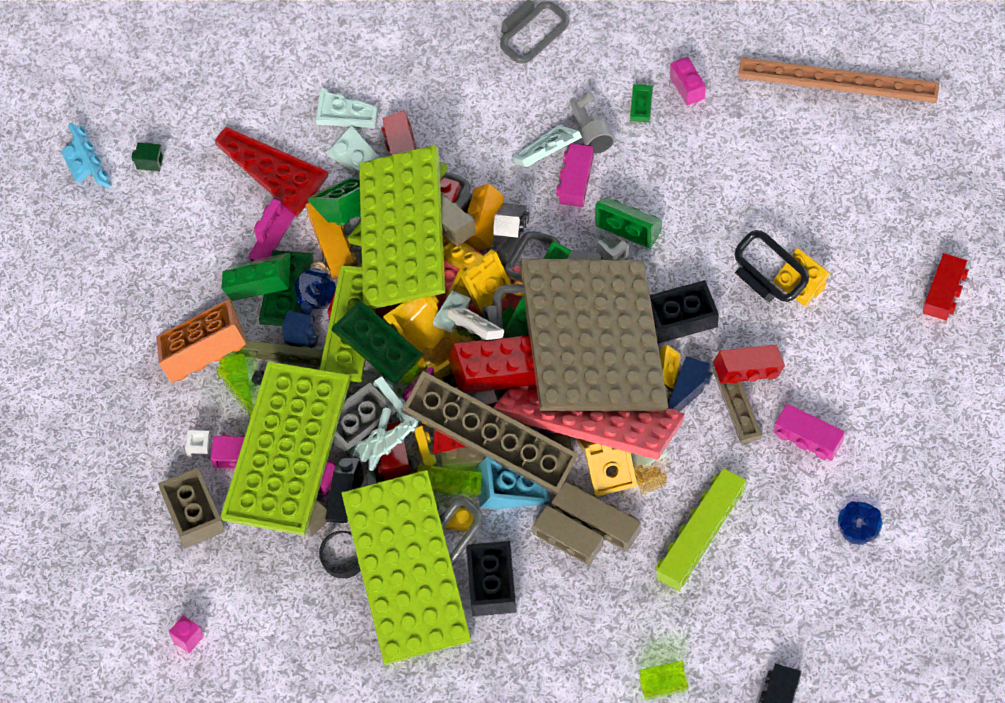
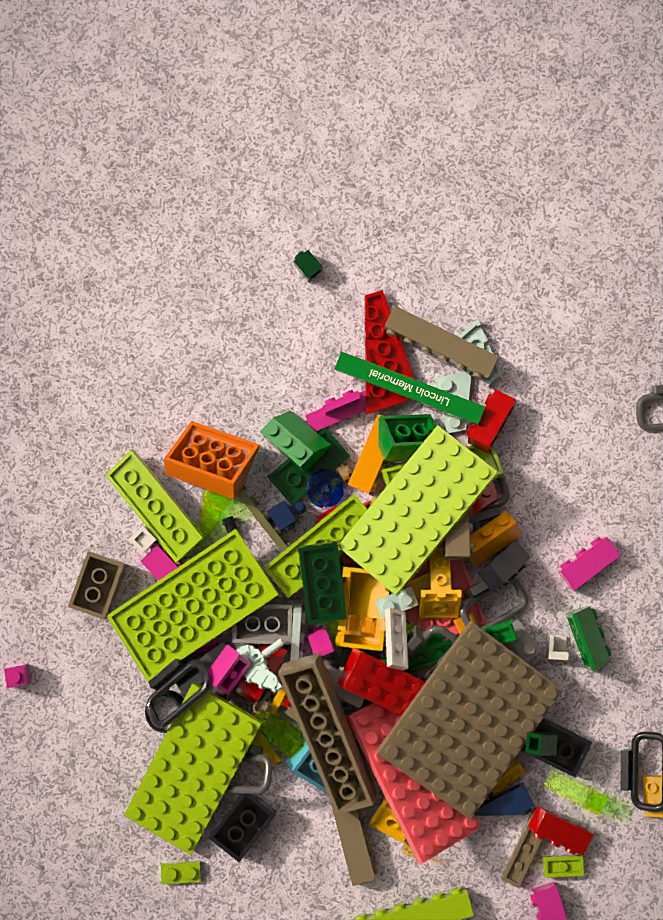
camera: 40 degrees right, 25 degrees up
(83, 159) = (263, 223): medium azure bracket -> none
(184, 410) = (155, 506): none -> lime plate
(307, 120) = (441, 343): none -> dark tan brick
(312, 166) = (409, 388): none -> green tile
(318, 512) = (166, 679): none -> black bar
(361, 459) = (228, 669): none -> dark pink brick
(477, 667) = (181, 872): none -> lime plate
(547, 144) = (591, 519): light aqua wing -> none
(568, 535) = (323, 838): dark tan brick -> none
(593, 132) = (635, 540): light grey piece -> none
(665, 305) = (541, 743): none -> dark green brick
(734, 332) = (575, 792): none -> clear neon green slope
(779, 392) = (563, 866): none -> lime plate

